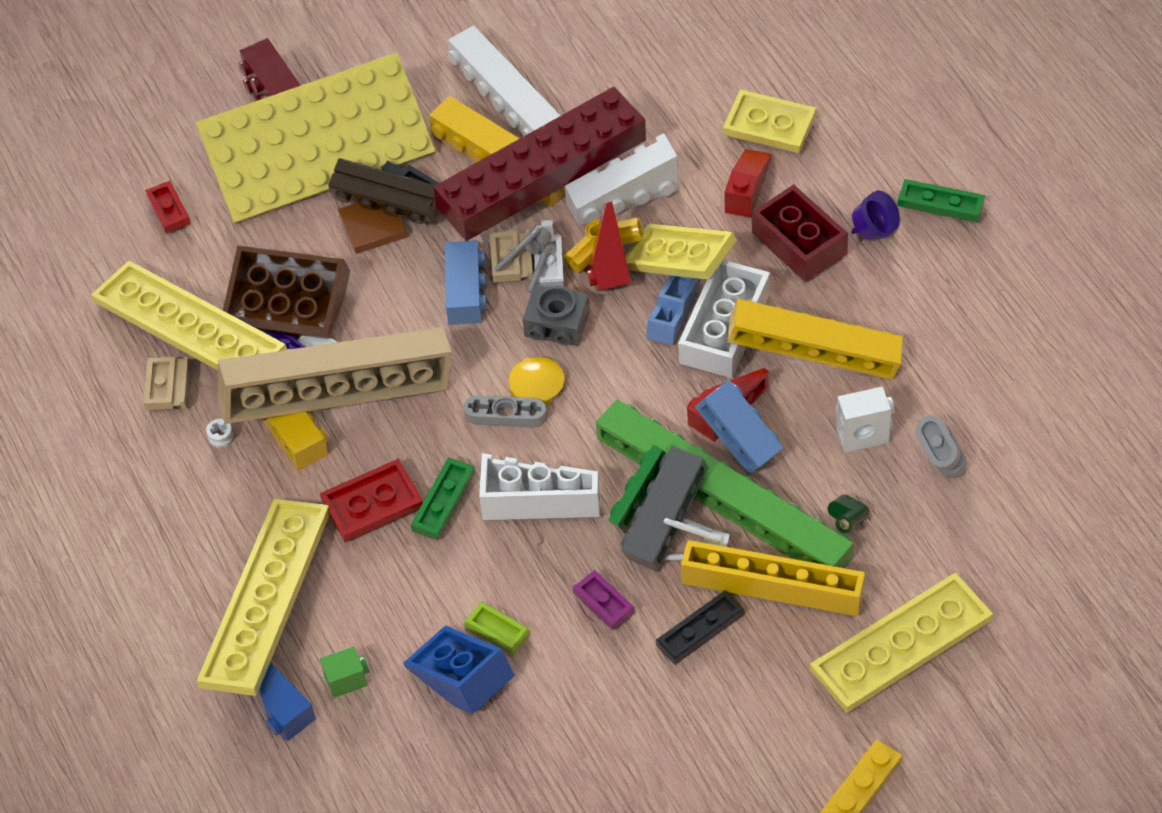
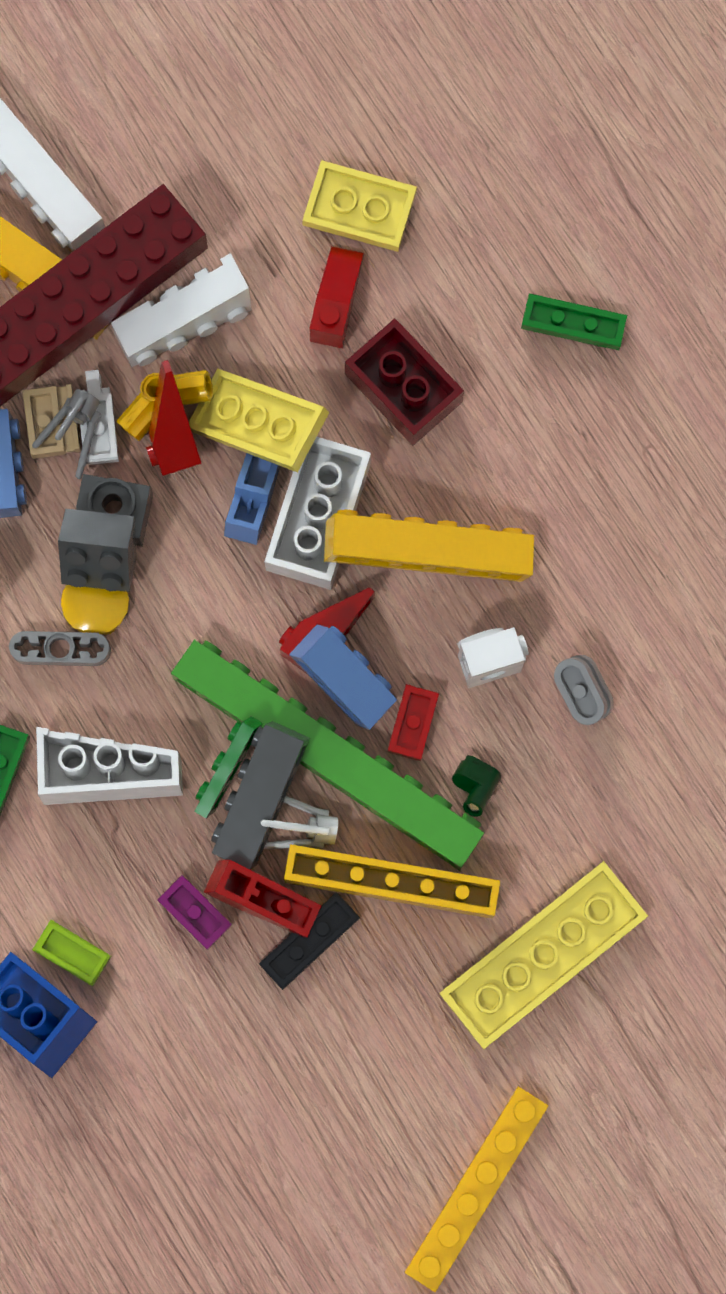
camera: 10 degrees left, 25 degrees up
(542, 333) = (97, 550): none -> dark grey brick
(660, 586) = (262, 897): none -> red slope
(796, 470) = (413, 722): none -> red plate
(875, 216) = (496, 352): dark purple piece -> none

